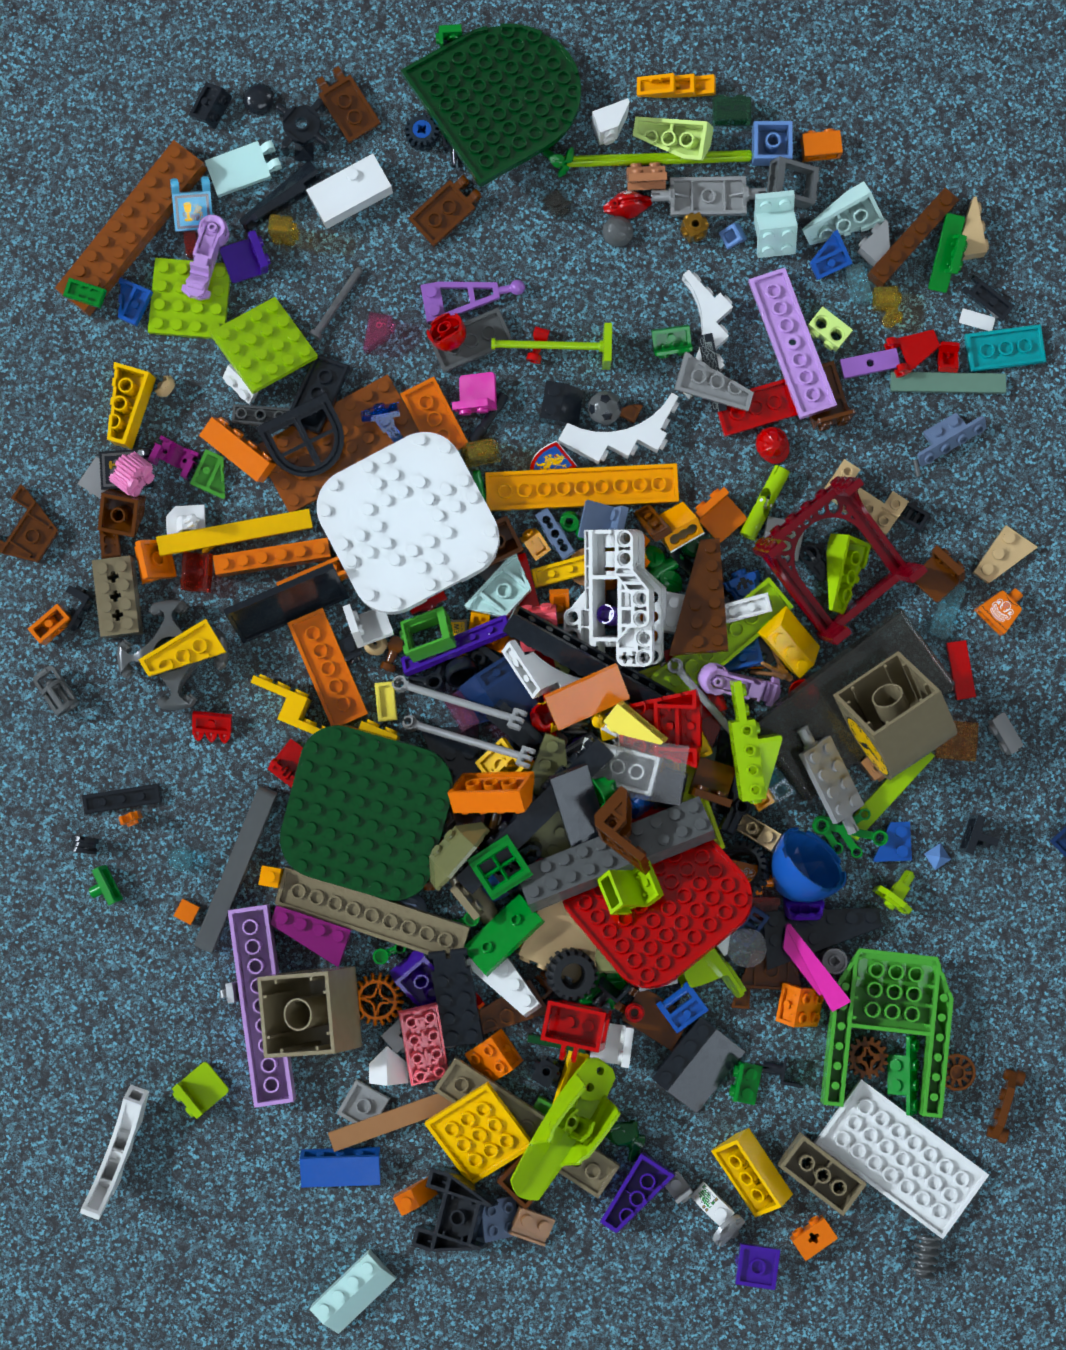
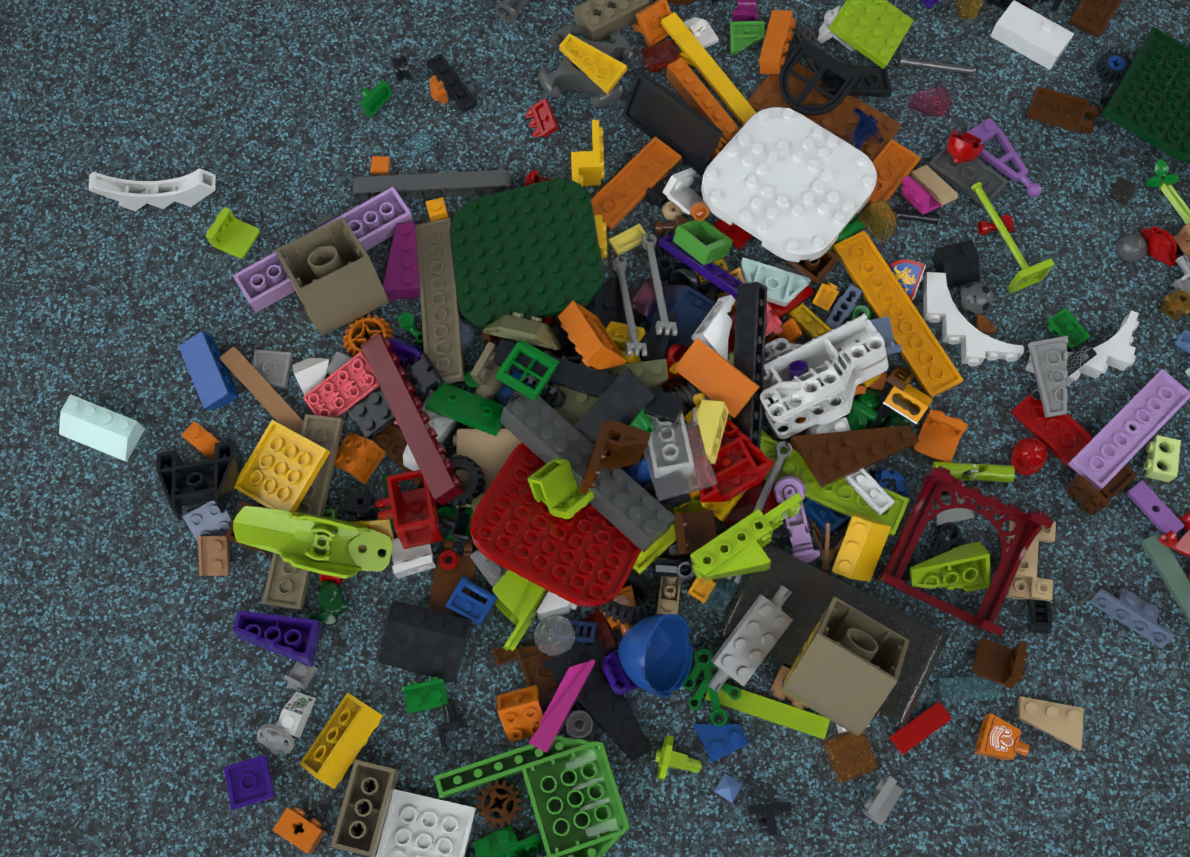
camera: 65 degrees right, 15 degrees down
(397, 623) = (699, 211): none -> orange tile
(470, 381) = (934, 185): none -> tan tile
(493, 994) = (412, 419): none -> dark red brick

